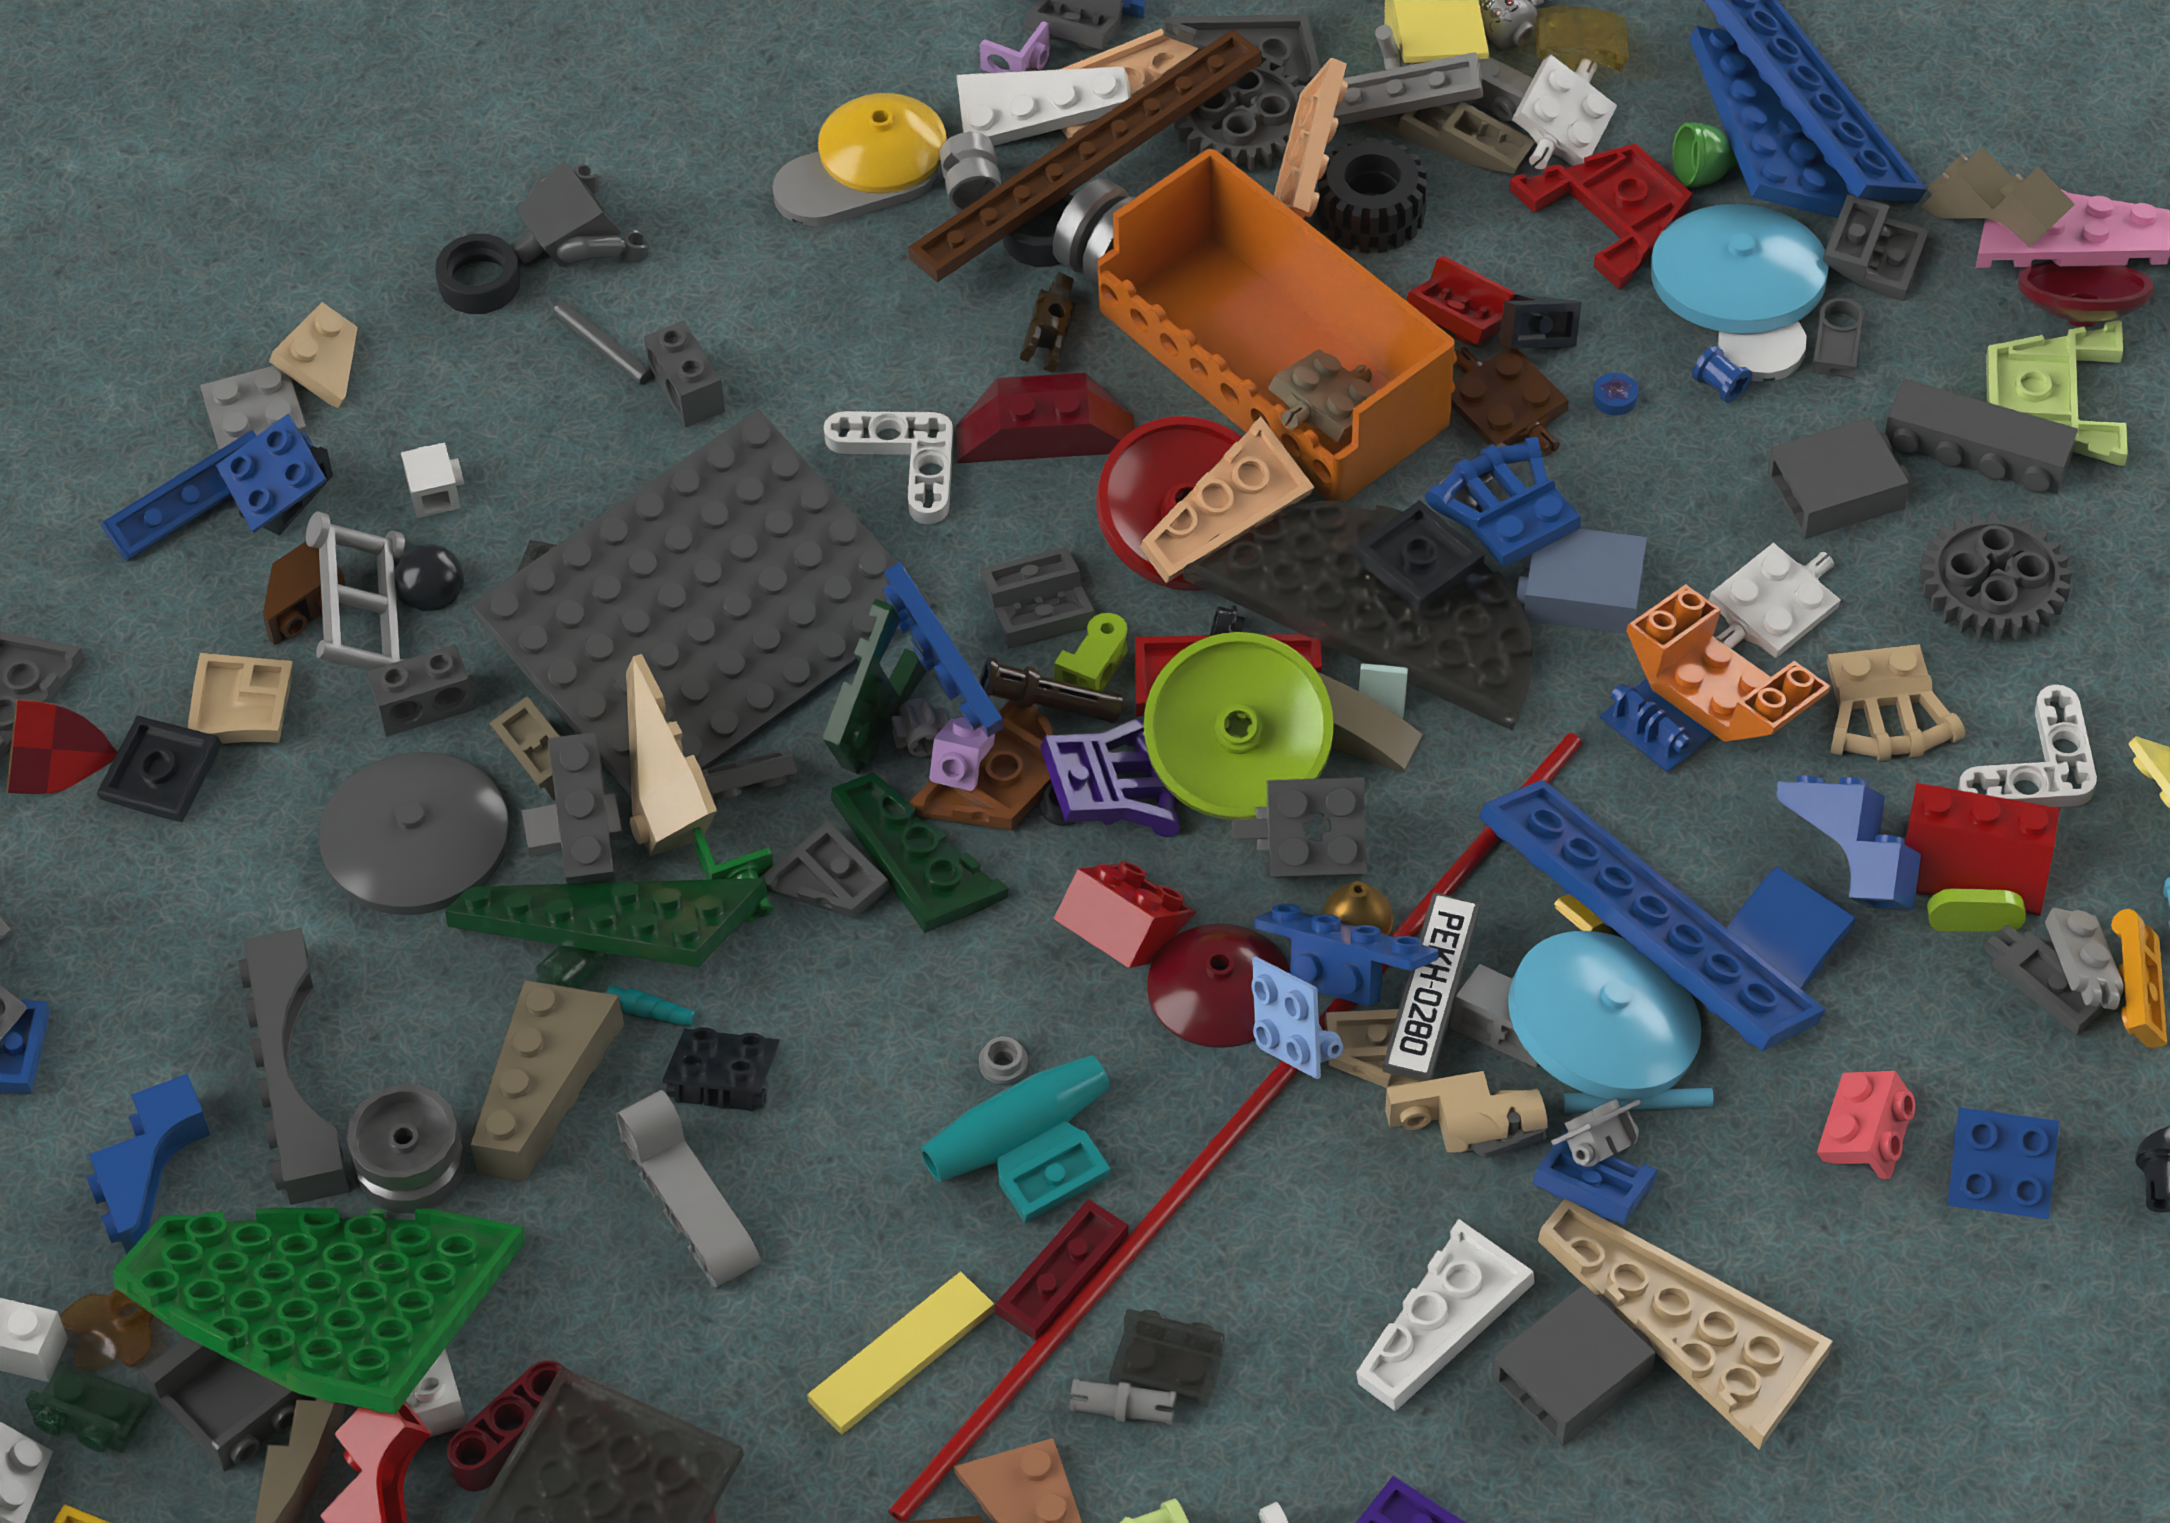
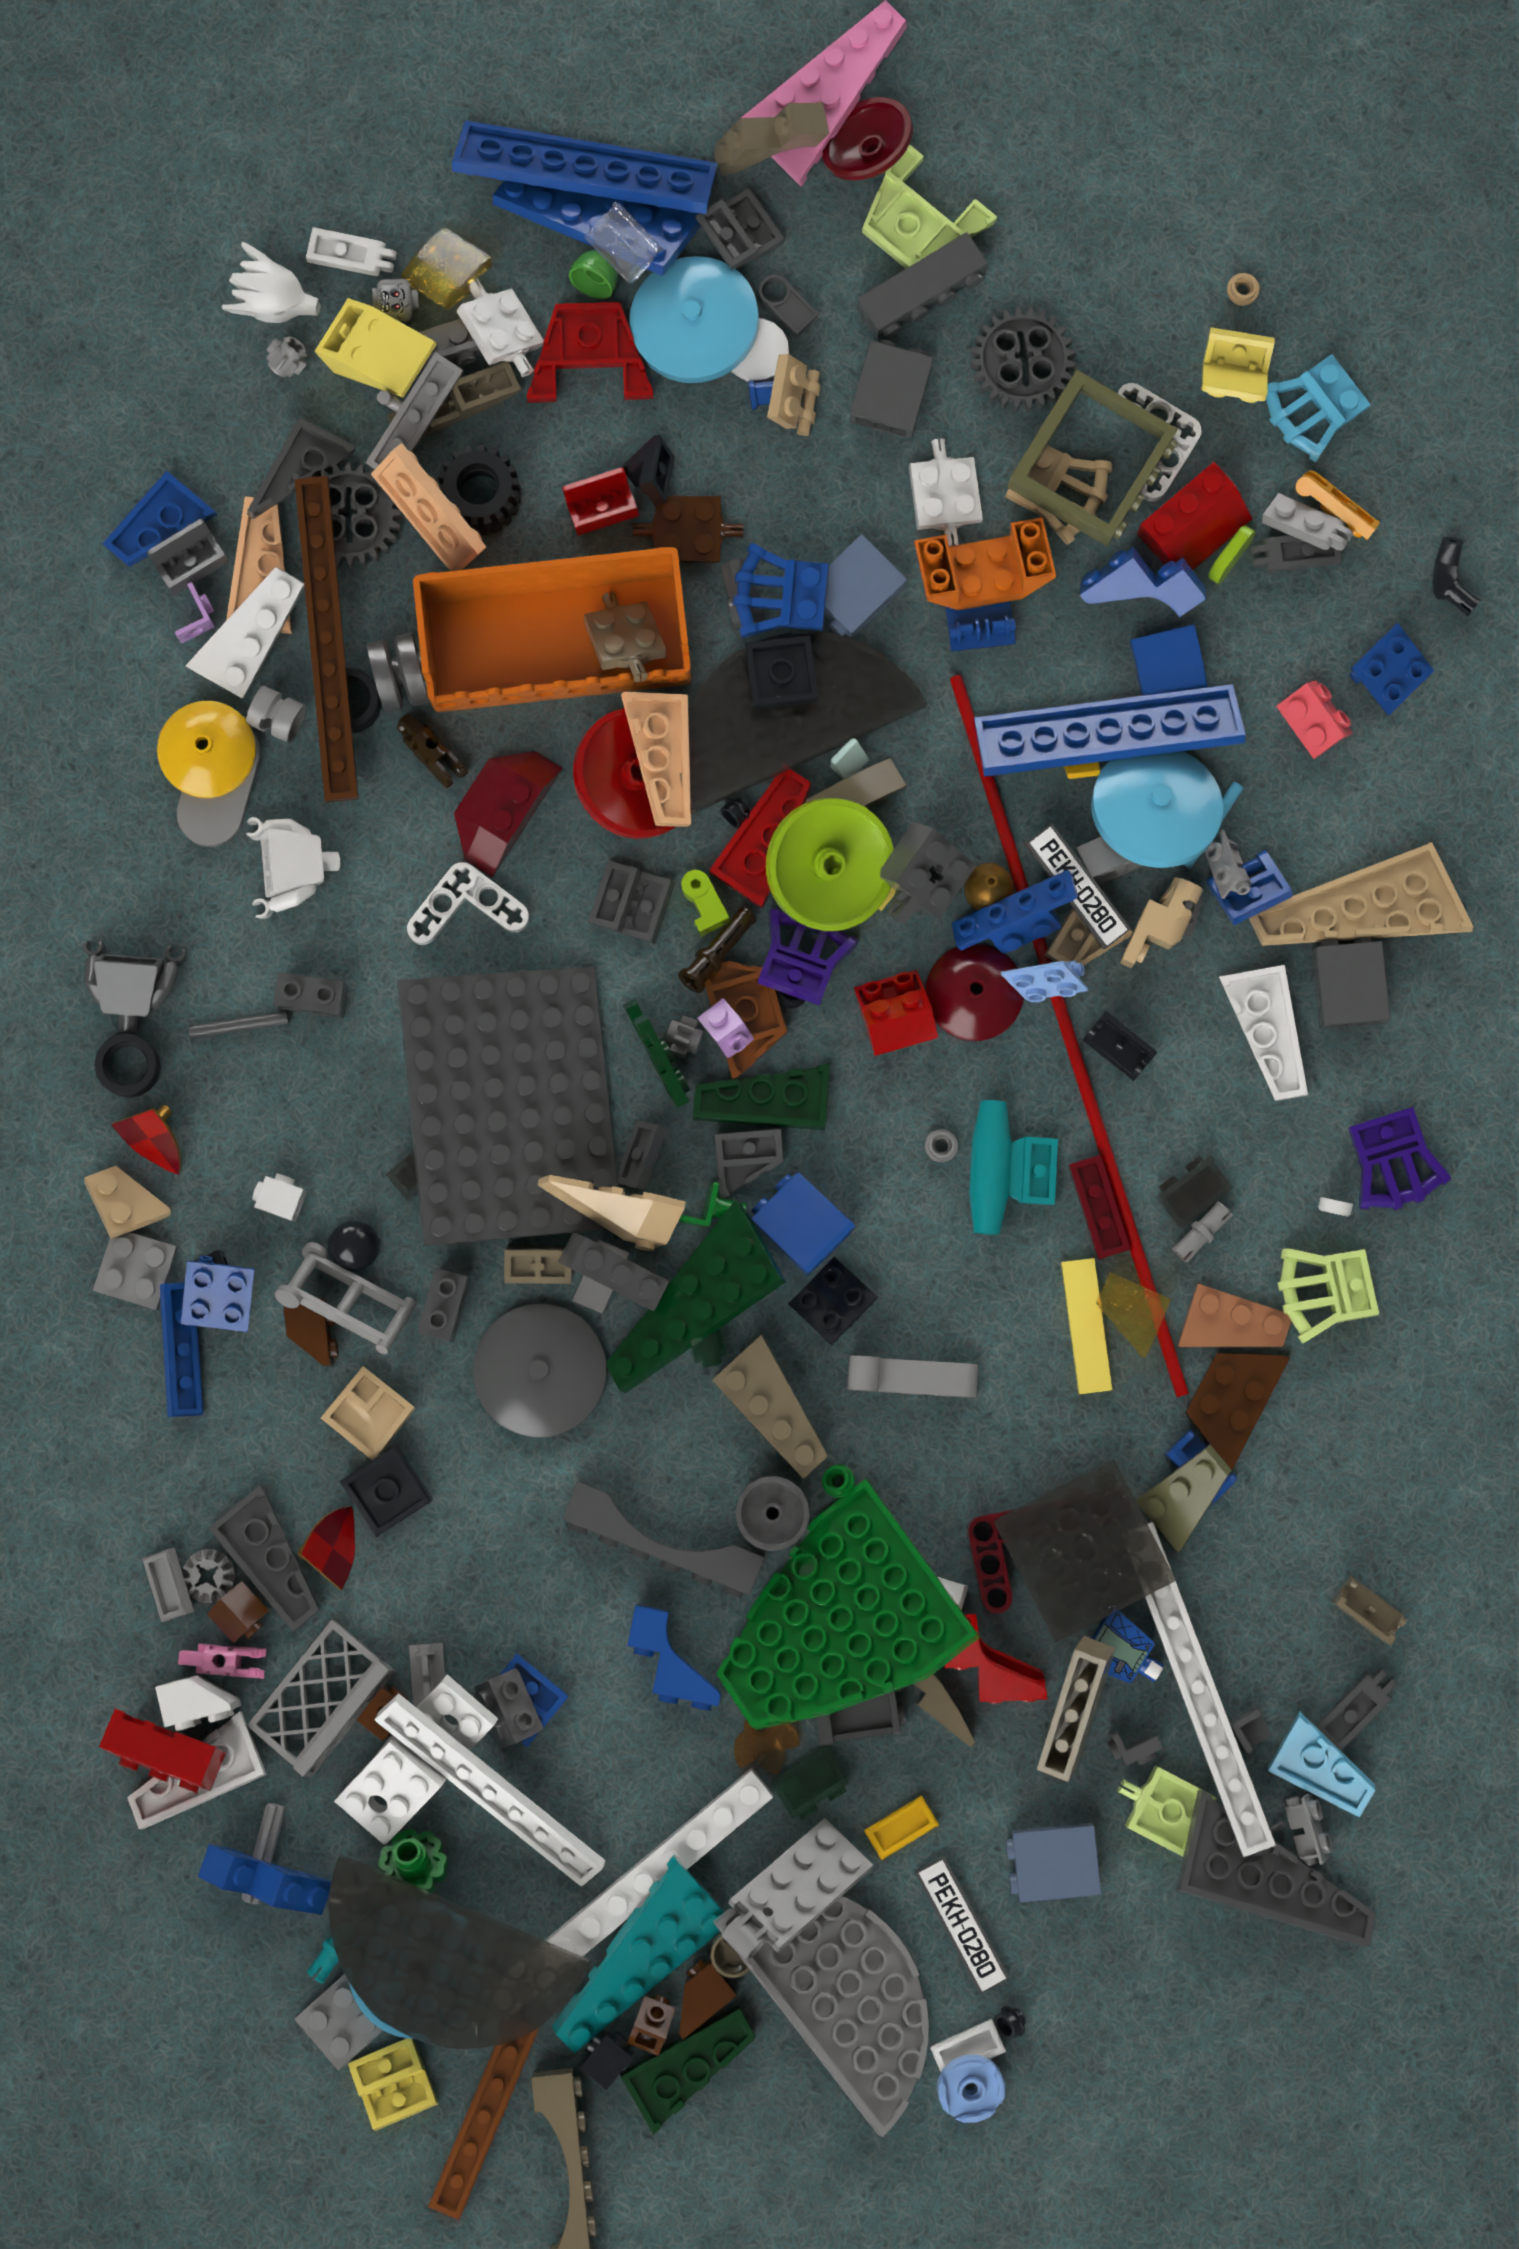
camera: 55 degrees left, 30 degrees up
(414, 333) = (151, 1137): none -> shield
(500, 1202) = (829, 1478): none -> green plate
(649, 1006) = (761, 1315): teal animal -> none
(788, 973) = (802, 1222): none -> blue slope
(814, 275) = (290, 863): none -> white torso
(938, 651) = (665, 1002): blue wing -> none
(958, 1383) = (1133, 1311): none -> clear yellow wing
(1280, 1166) = (1119, 1046): none -> black hinge
(1615, 393) = (730, 463): blue tile -> none
(1738, 380) = (787, 392): none -> tan plate
(1749, 137) = (623, 243): none -> clear plate
(1944, 634) = (1063, 508): none -> olive window

